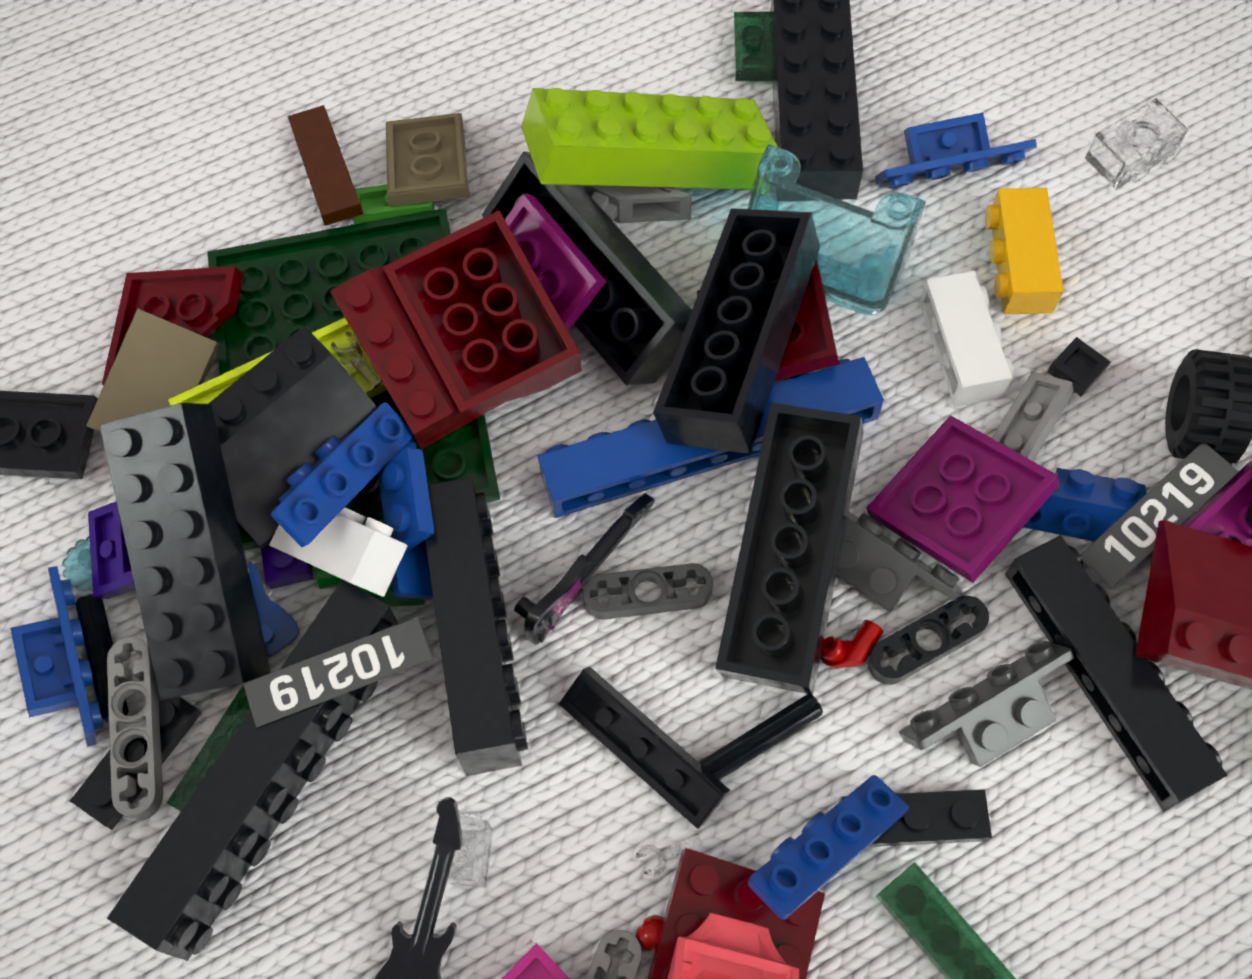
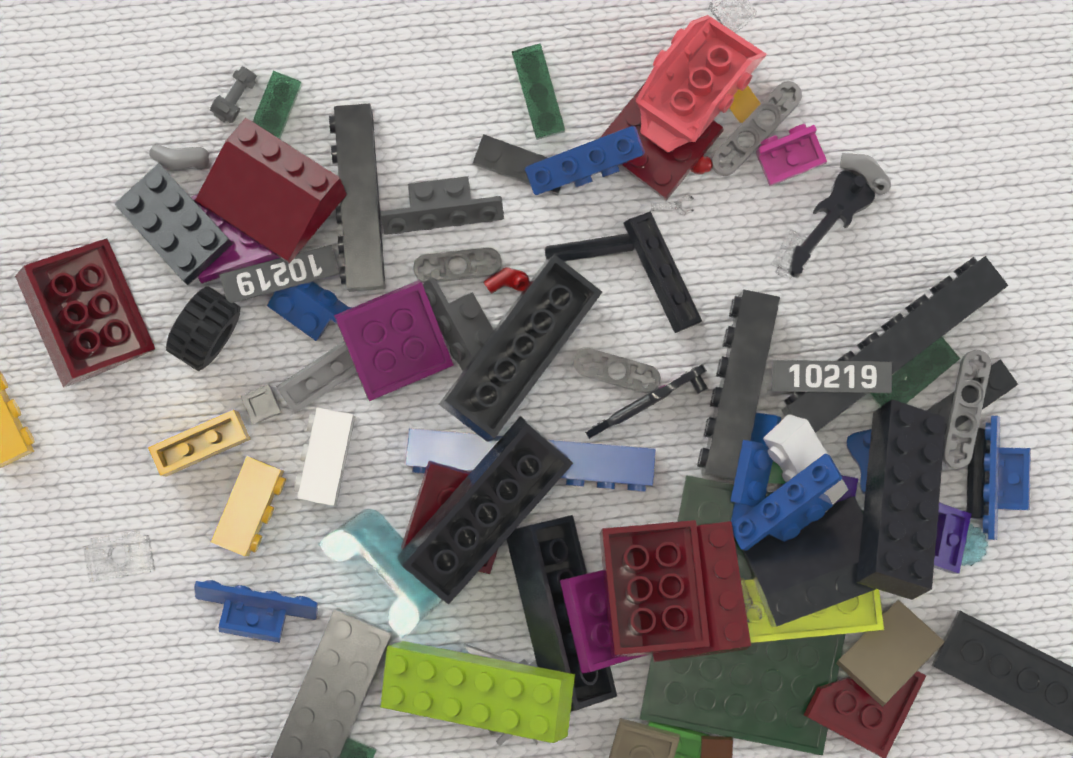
camera: 155 degrees left, 20 degrees up
(1126, 287) = (199, 443): none -> yellow brick

